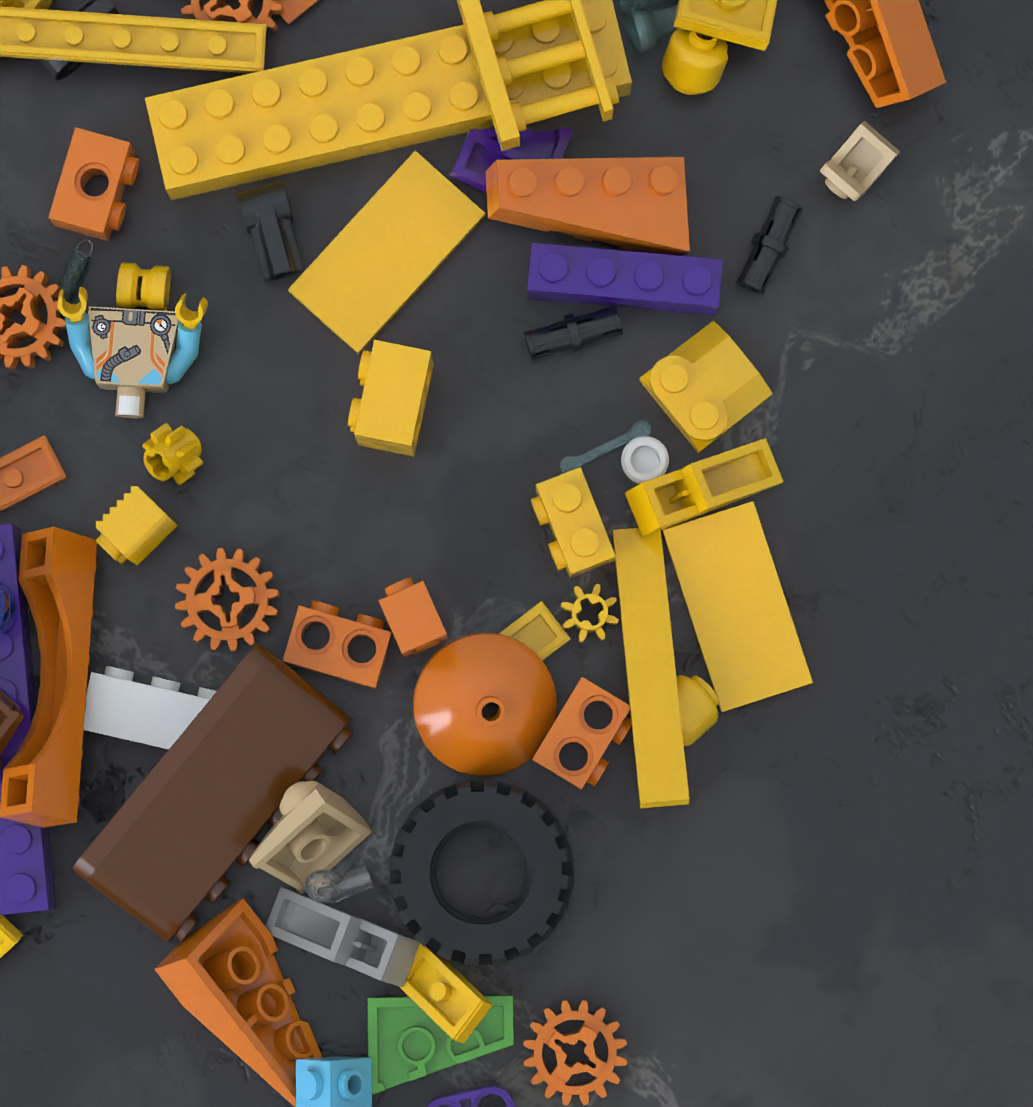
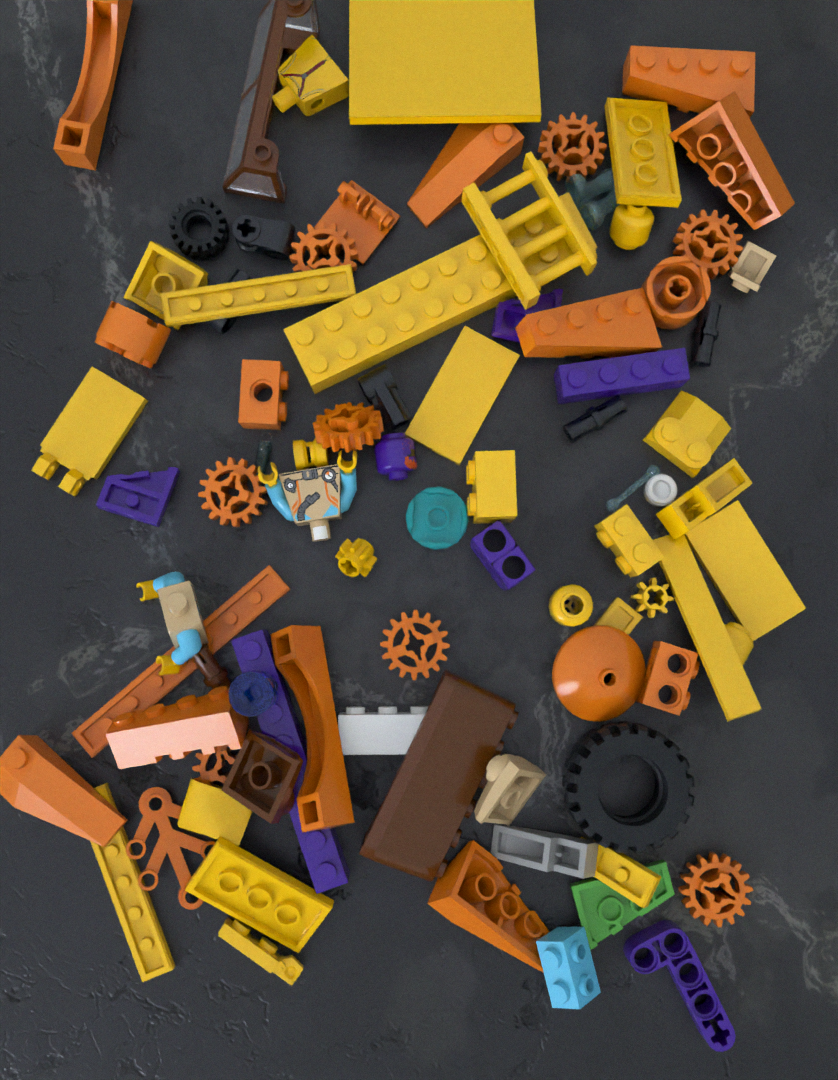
camera: 20 degrees left, 0 degrees up
(133, 527) = (343, 612): yellow brick -> none
(205, 261) = (348, 427): none -> orange gear
(266, 319) = (395, 456): none -> dark purple head
(305, 424) = (437, 518): none -> teal tile
(334, 886) = (527, 817): clear arm -> none
(335, 657) = (494, 665): orange brick -> none
(391, 493) = (487, 557): none -> dark purple piece
(412, 617) = (542, 628): orange brick -> none
(466, 577) = (581, 608): none -> yellow head
(755, 163) = (683, 279): none -> orange brick
(820, 120) = (720, 242): none -> orange gear

